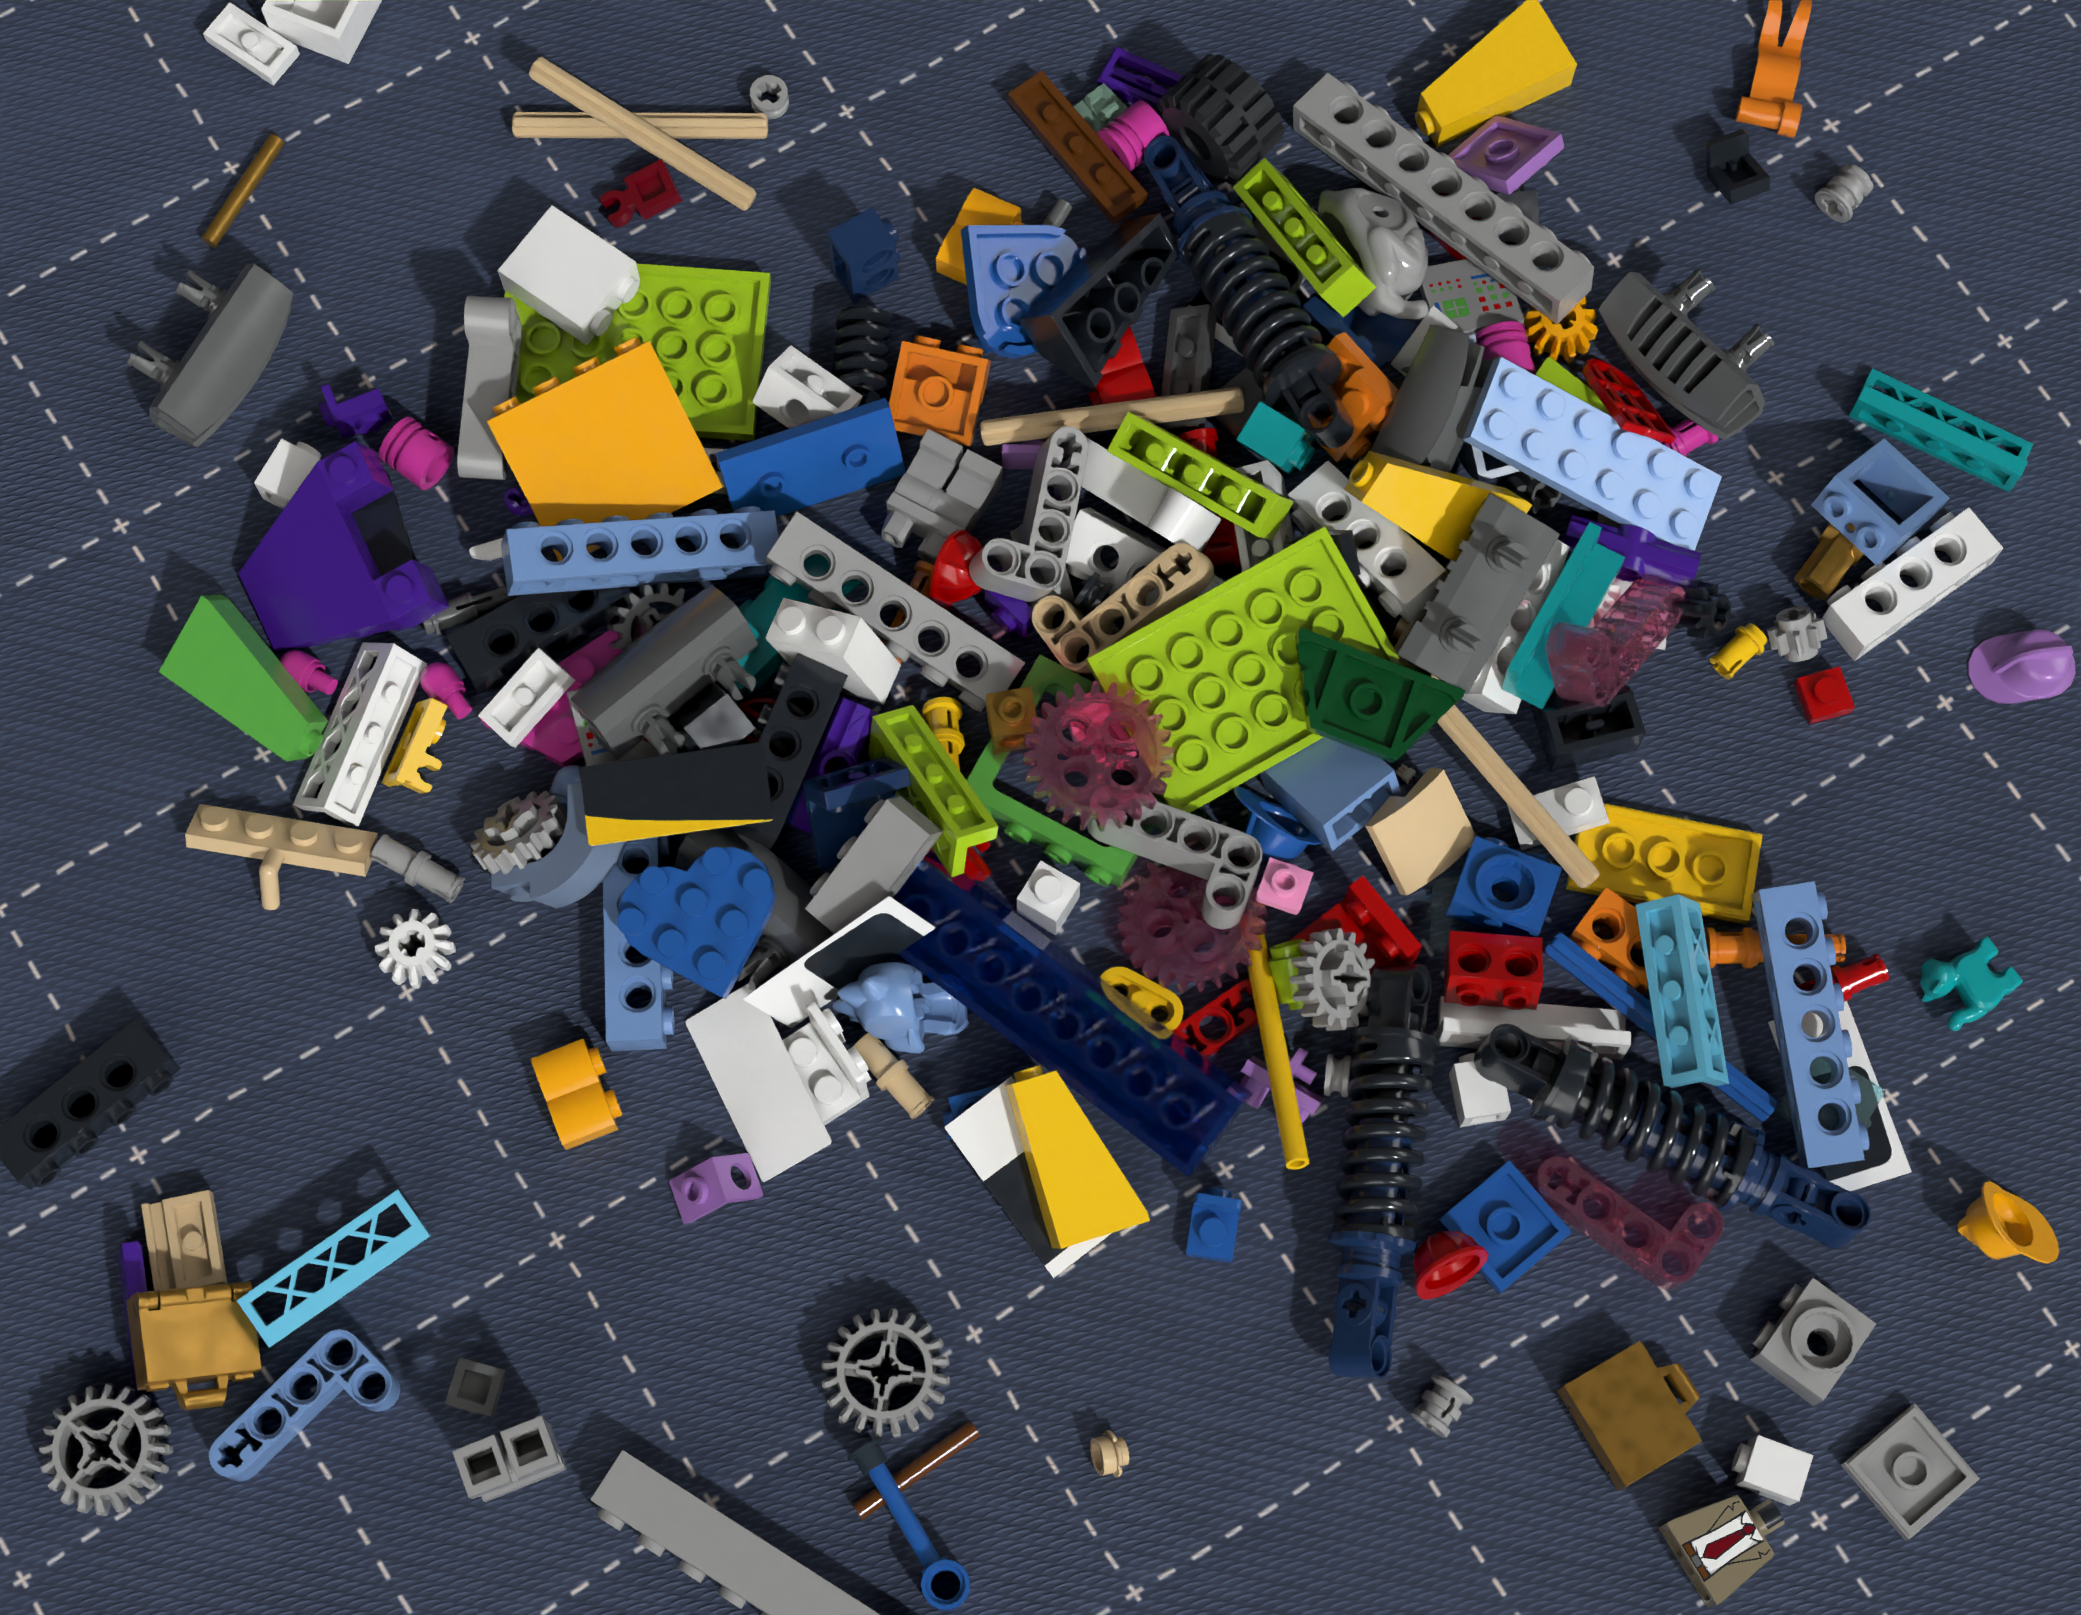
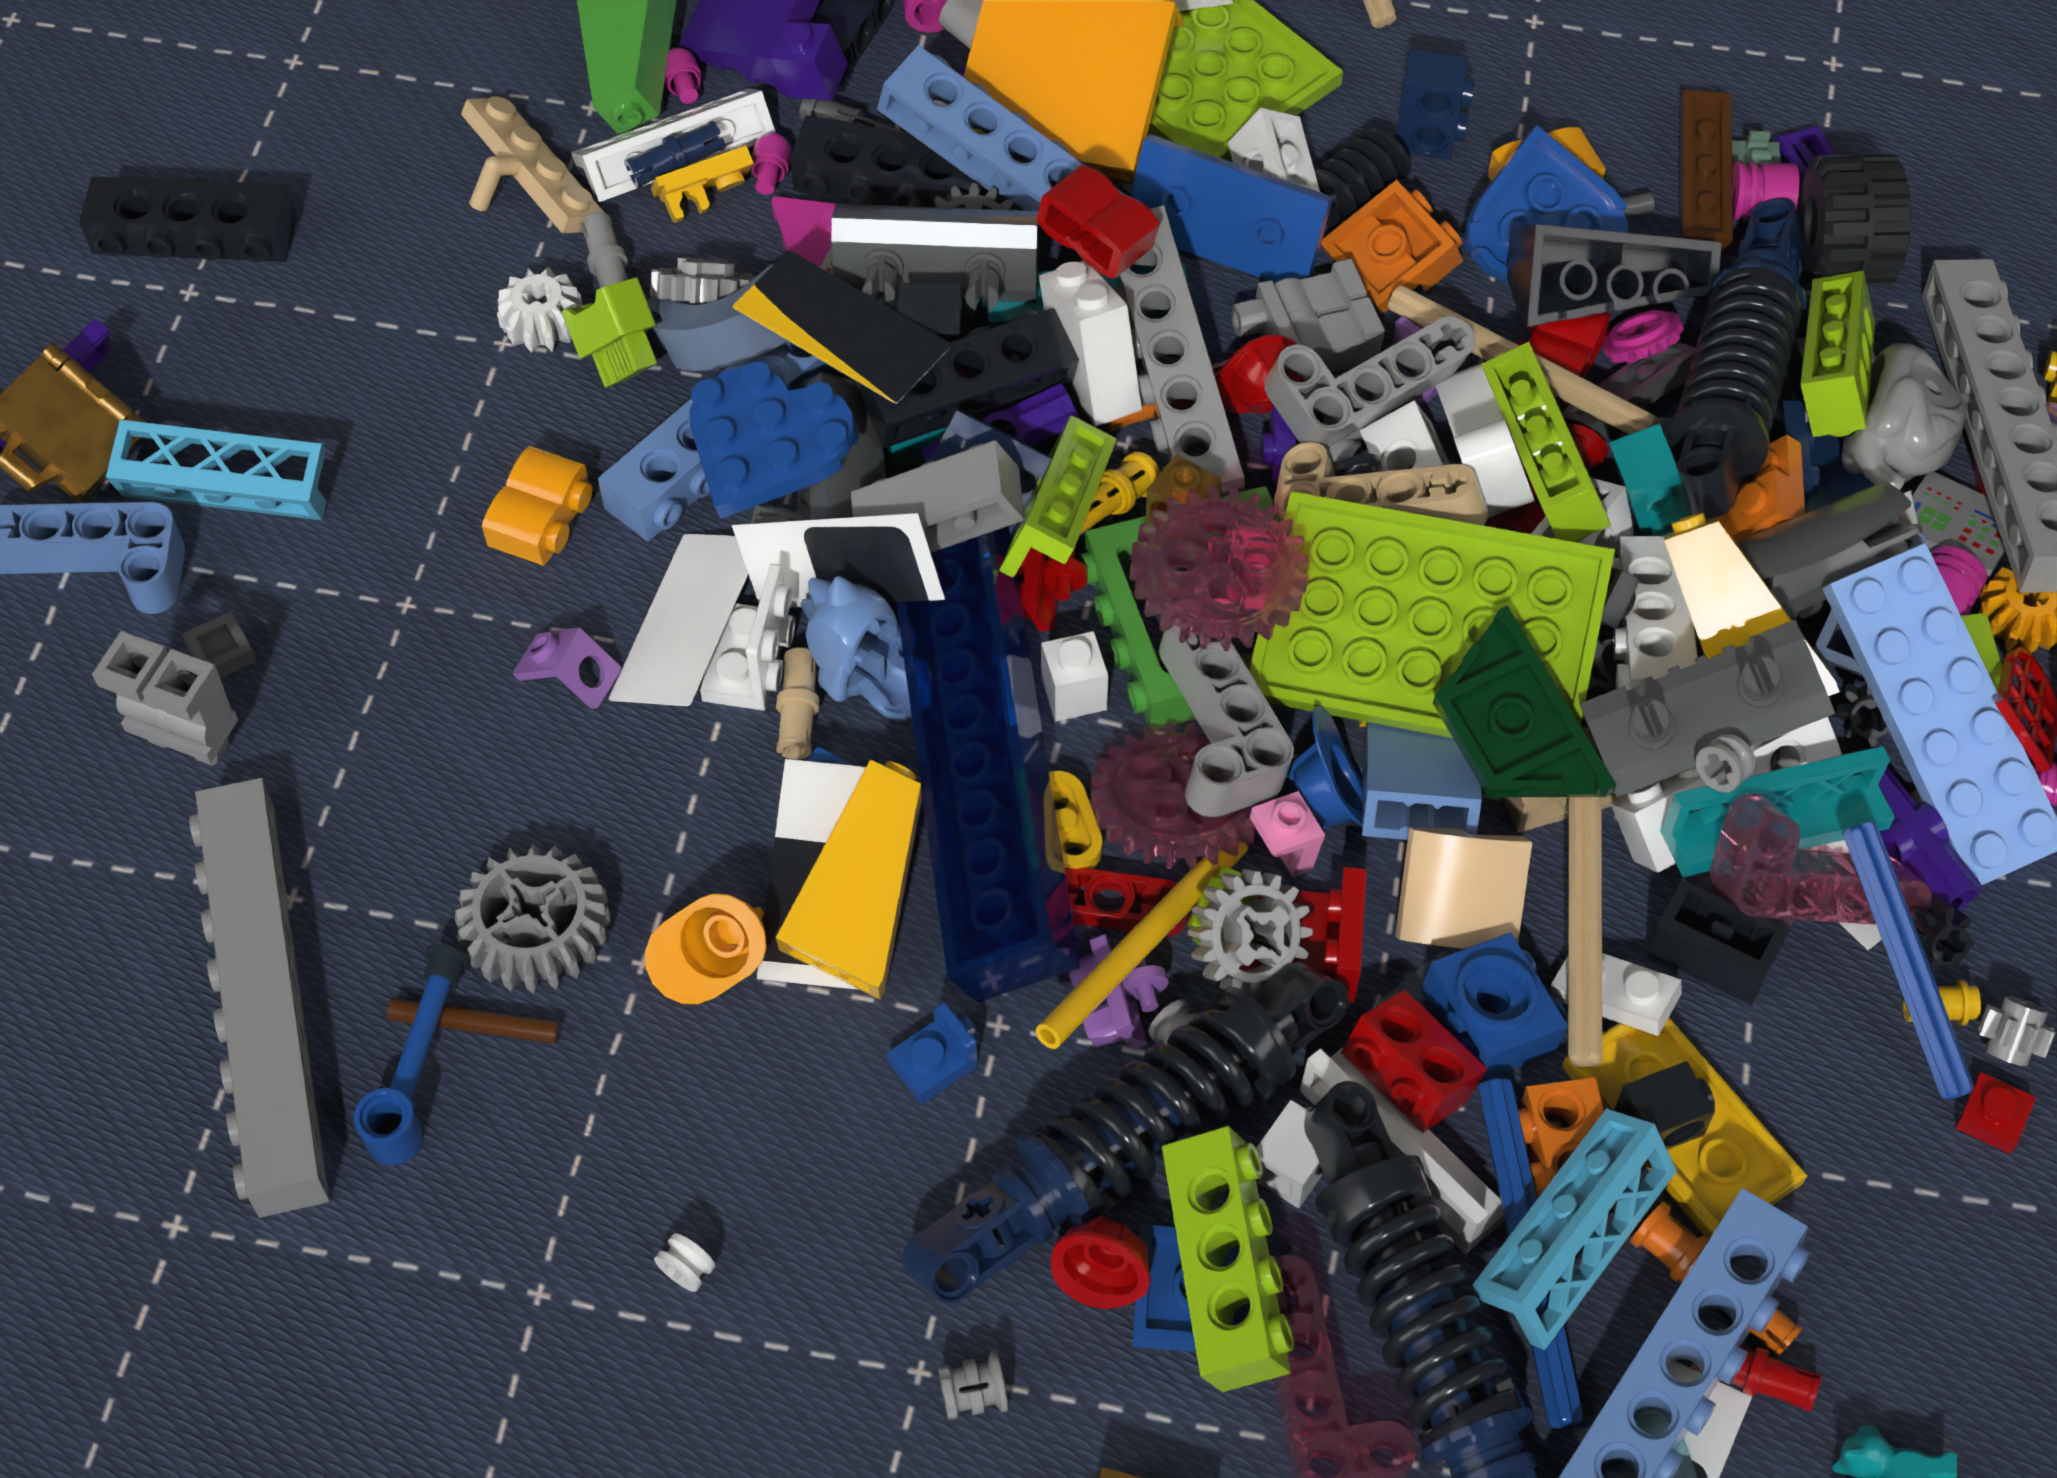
camera: 45 degrees right, 15 degrees down
(184, 1242) = (147, 365): tan plate -> none
(382, 746) = (674, 154): none -> dark blue pin
(497, 924) = (614, 331): none -> lime piece
(526, 697) = (812, 199): white plate -> none
(775, 567) = (1097, 221): none -> red brick
(1017, 1290) = (706, 948): none -> light orange piece
(1109, 1454) = (641, 1153): tan plate -> none
(1164, 304) = (1642, 336): none -> dark pink gear
(1205, 1493) = (684, 1262): none -> white bush
(1524, 623) = (1735, 752): none -> light grey bush
(1566, 1254) = (1196, 1174): none -> lime brick
(1660, 867) = (1672, 1101): none -> black brick
(1710, 647) = (1908, 960): none -> blue axle

